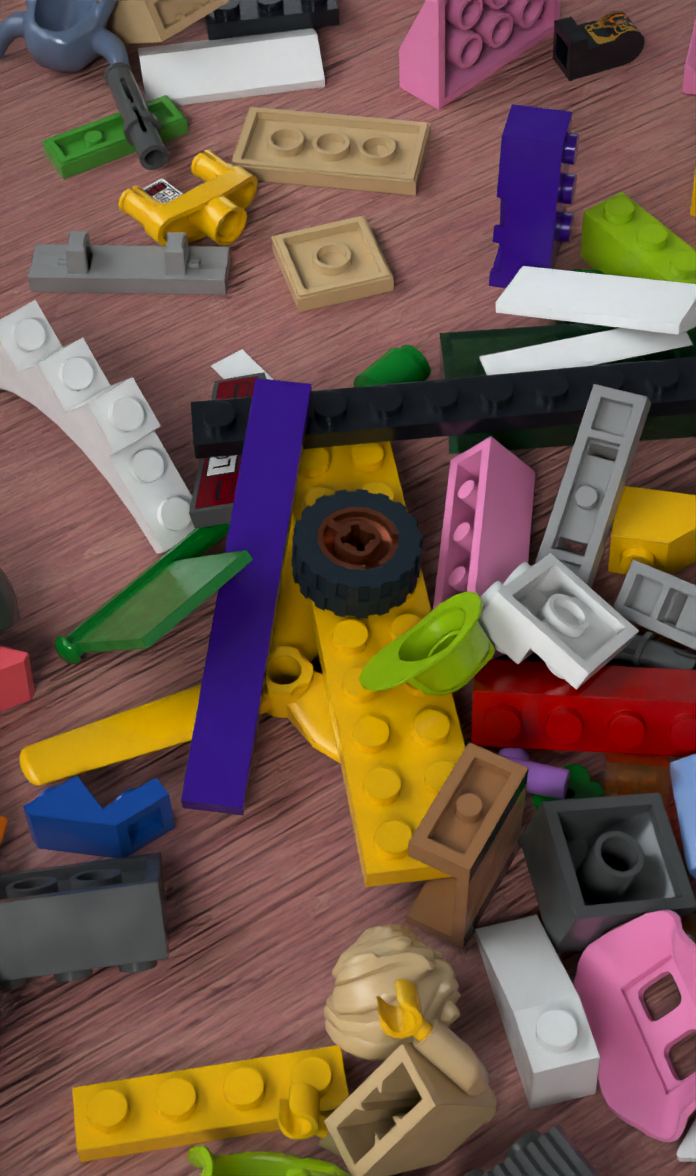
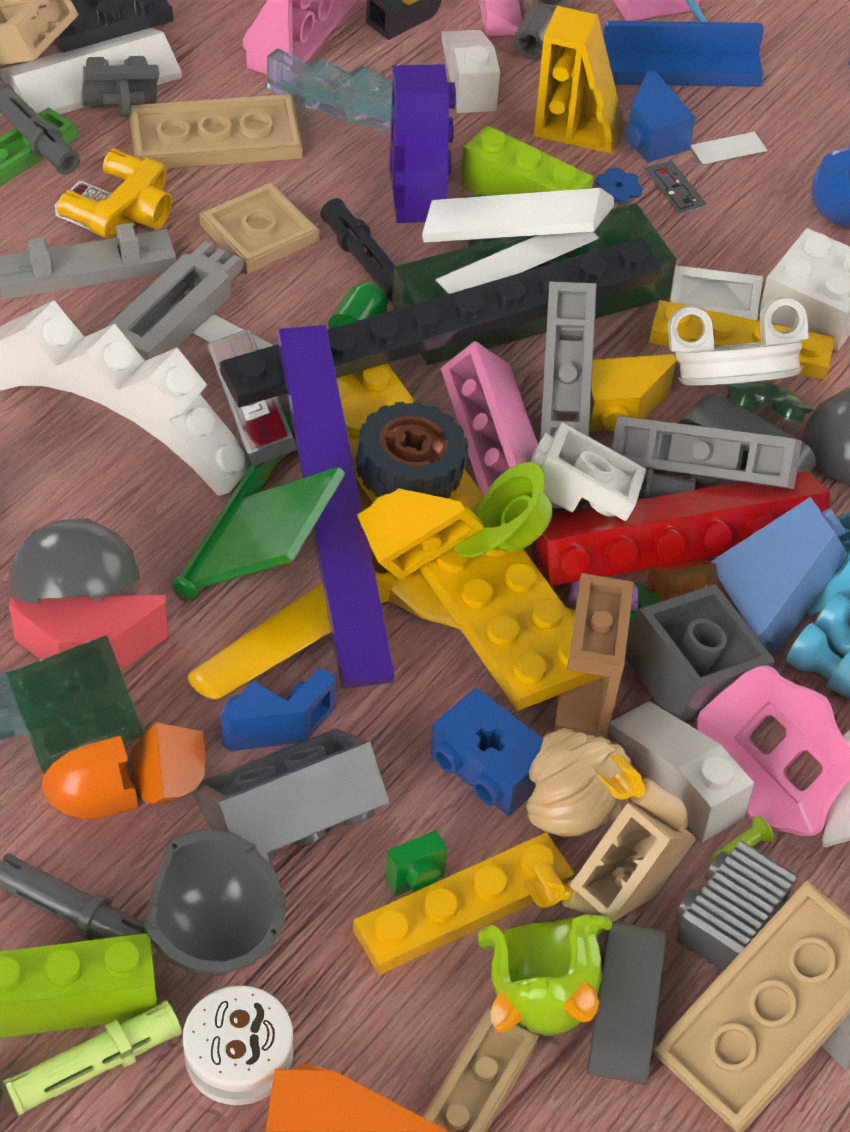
camera: 25 degrees left, 0 degrees up
(169, 1040) = (416, 863): none -> green plate
(198, 332) = (158, 324): none -> light grey hinge
(246, 82) = (119, 85): none -> dark grey hips
(308, 919) = (487, 750): none -> blue brick
(317, 644) = (415, 528): none -> yellow slope
(429, 294) = (340, 220): none -> black pin
(460, 116) = (354, 96): none -> clear light blue slope
(598, 1118) = (758, 832): none -> lime piece
(642, 129) = (473, 68): none -> white slope

